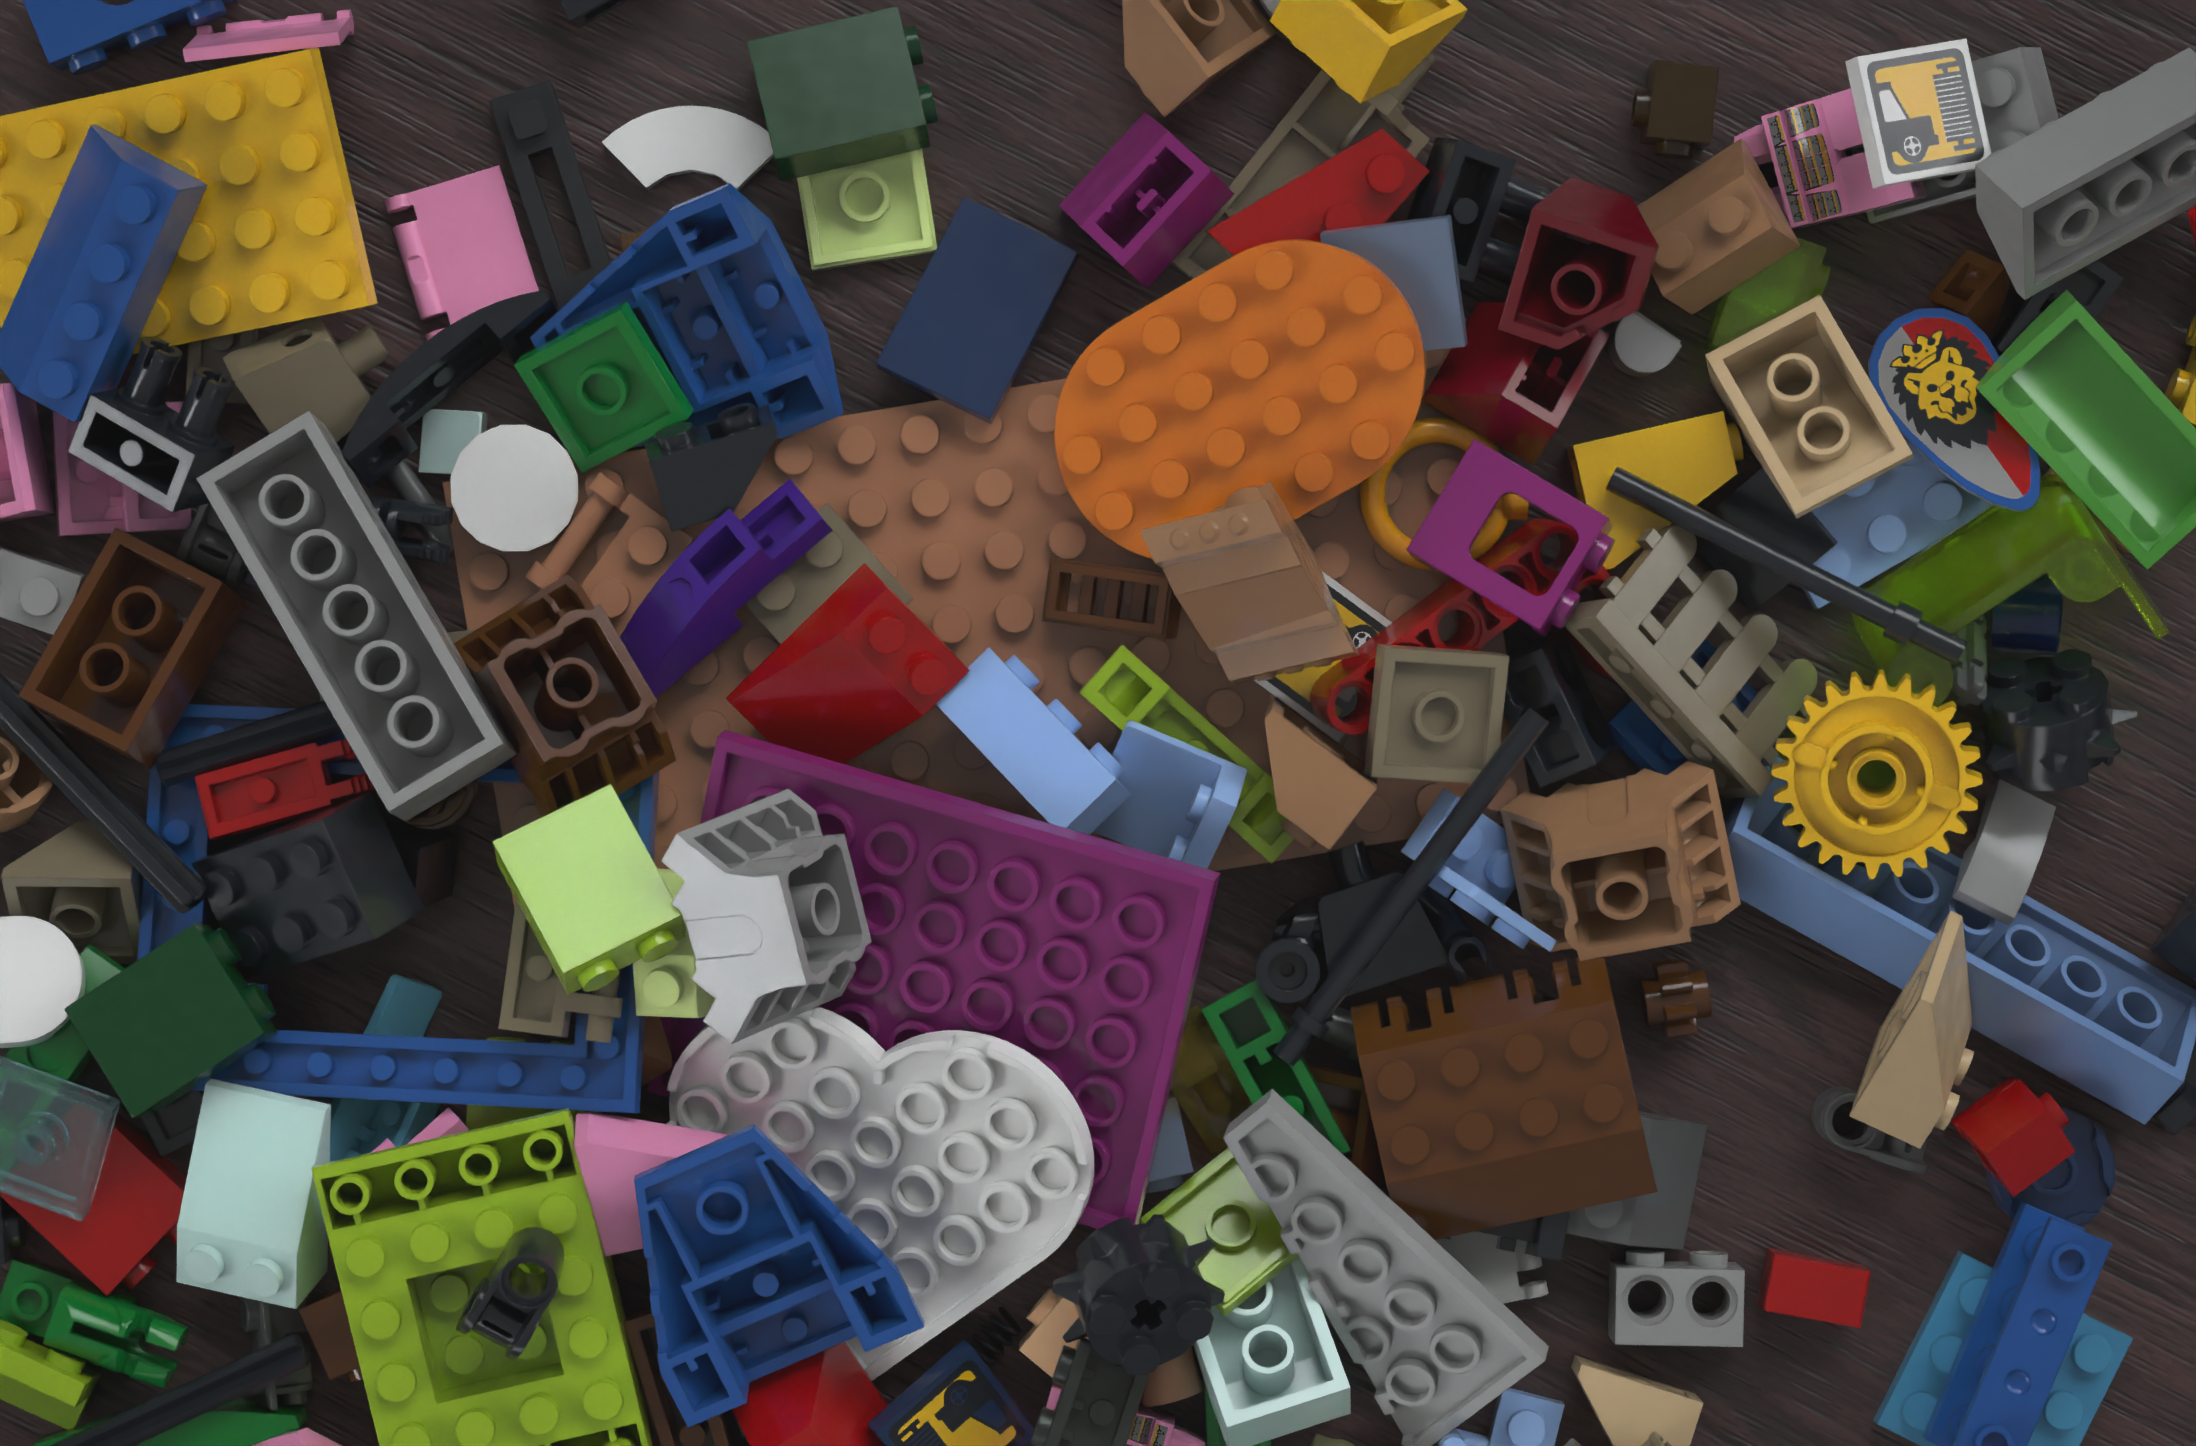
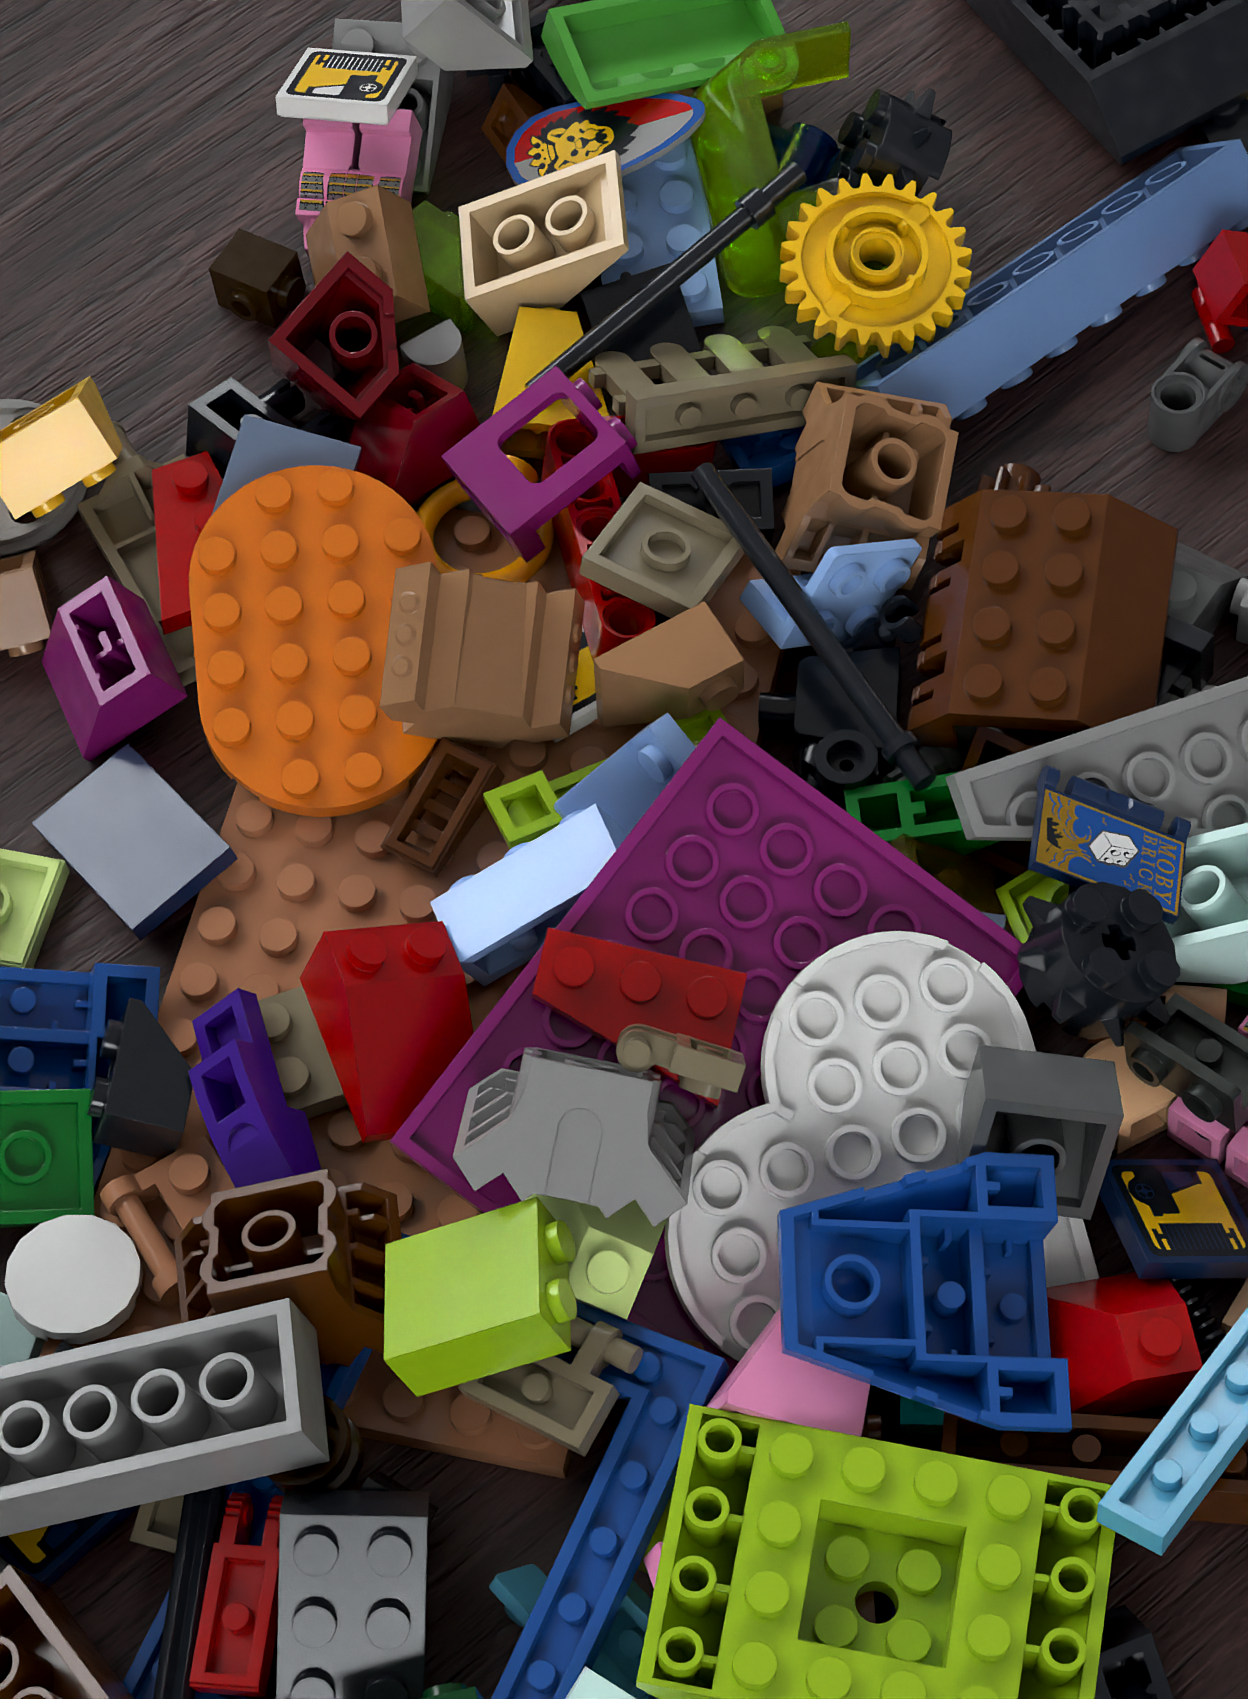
camera: 60 degrees left, 30 degrees down
(511, 1301) = (859, 1517): black piece -> none
(866, 991) = (700, 1064): none -> dark tan plate
(926, 915) = (619, 985): none -> red wing
(964, 1297) = (1045, 1107): none -> dark grey slope
(1265, 1259) = (1107, 838): none -> piece
(1921, 1045) = (1123, 308): tan slope -> none
(2004, 853) = (1000, 233): light grey slope -> none

